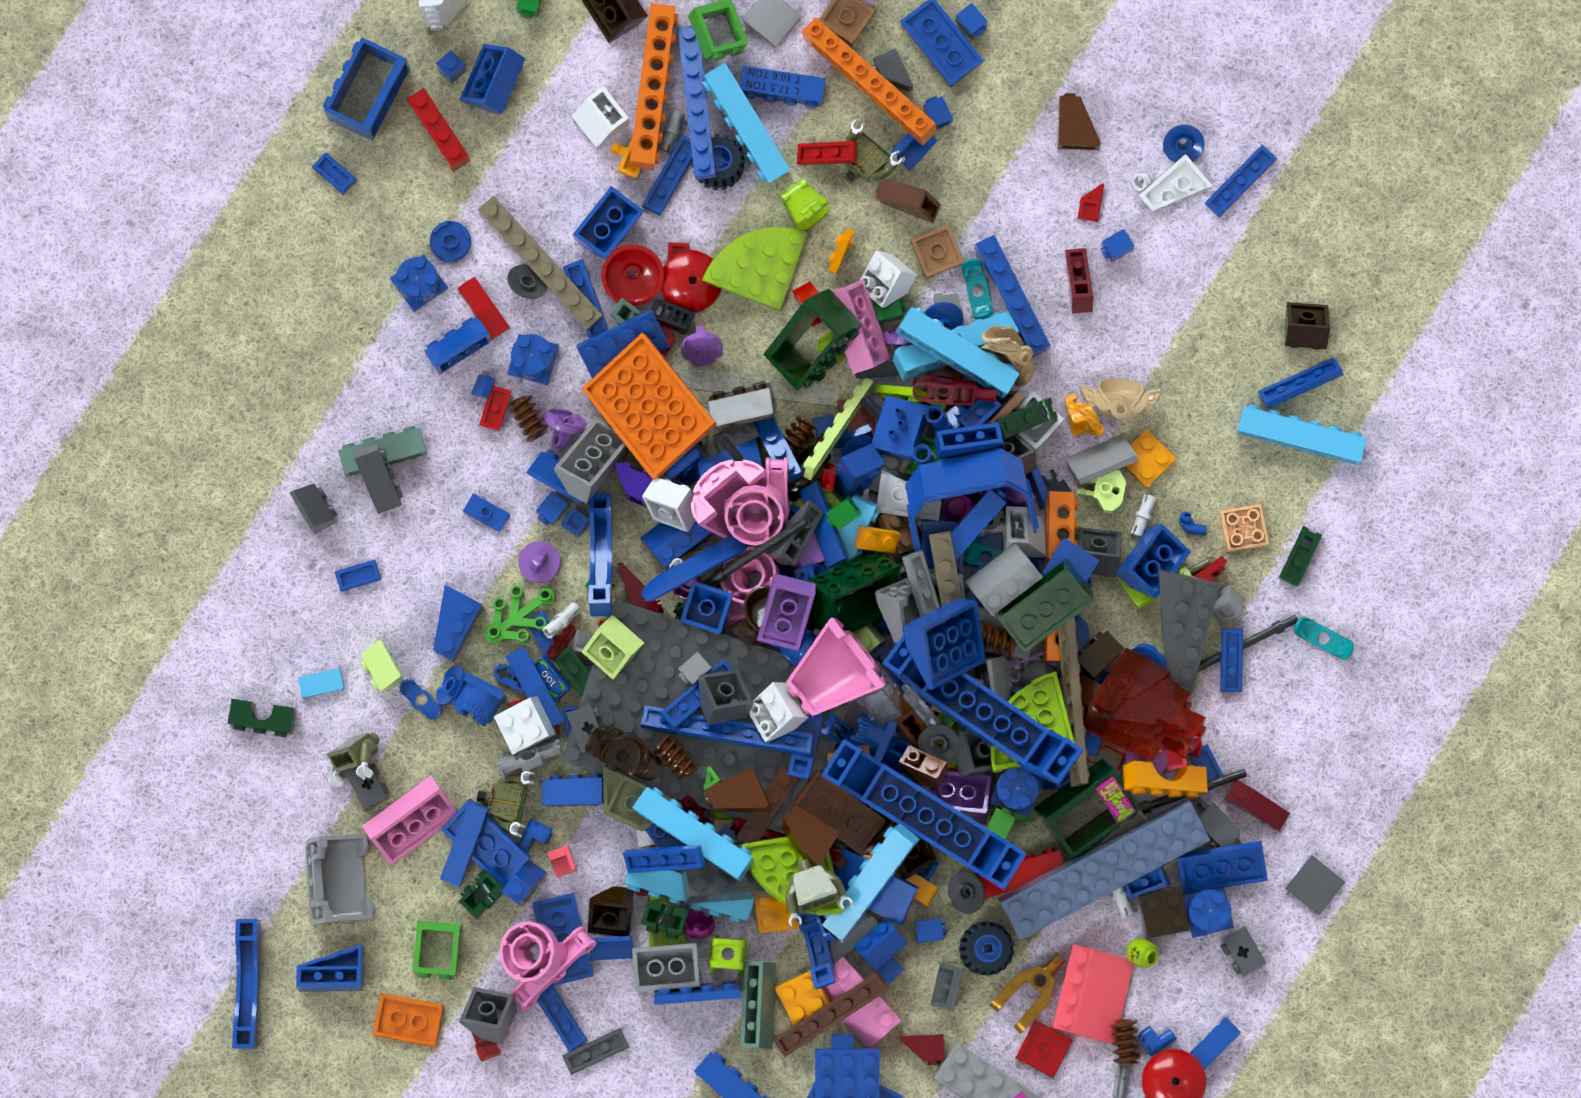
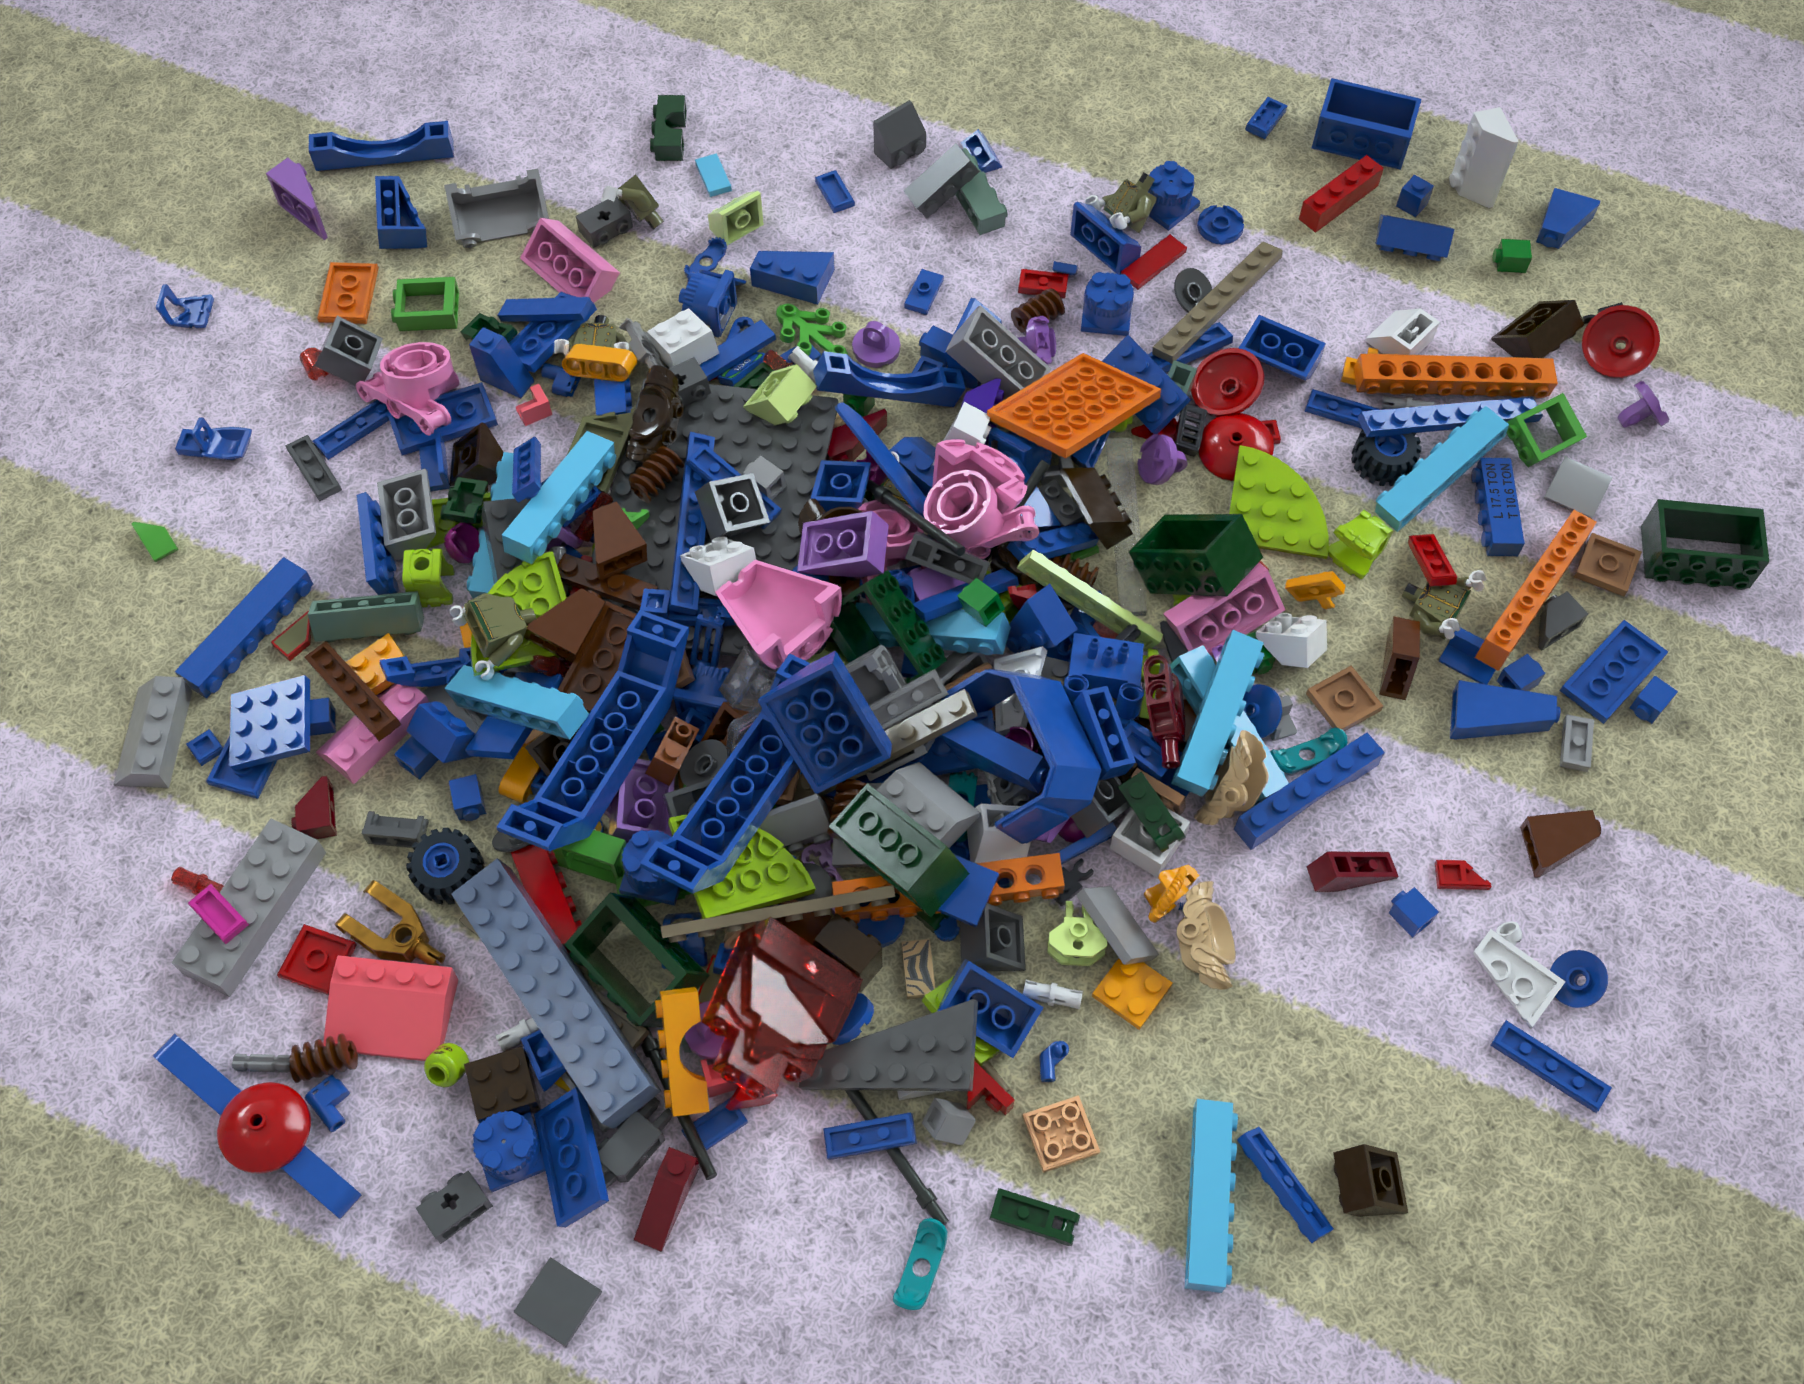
camera: 80 degrees right, 20 degrees down
(294, 1062) = (295, 194): none -> medium lavender slope
(332, 437) = (980, 148): none -> blue slope
(433, 318) = (1129, 204): none -> olive torso
(538, 798) = (599, 362): none -> light orange beam
(762, 1065) = (294, 638): none -> olive tile
(877, 539) = (956, 653): light orange plate -> none
(963, 144) = (1498, 711): none -> blue slope
(998, 88) = (1576, 743): none -> light grey plate
(1111, 609) = (918, 968): none -> tile
(1115, 800) = (645, 982): tile -> none

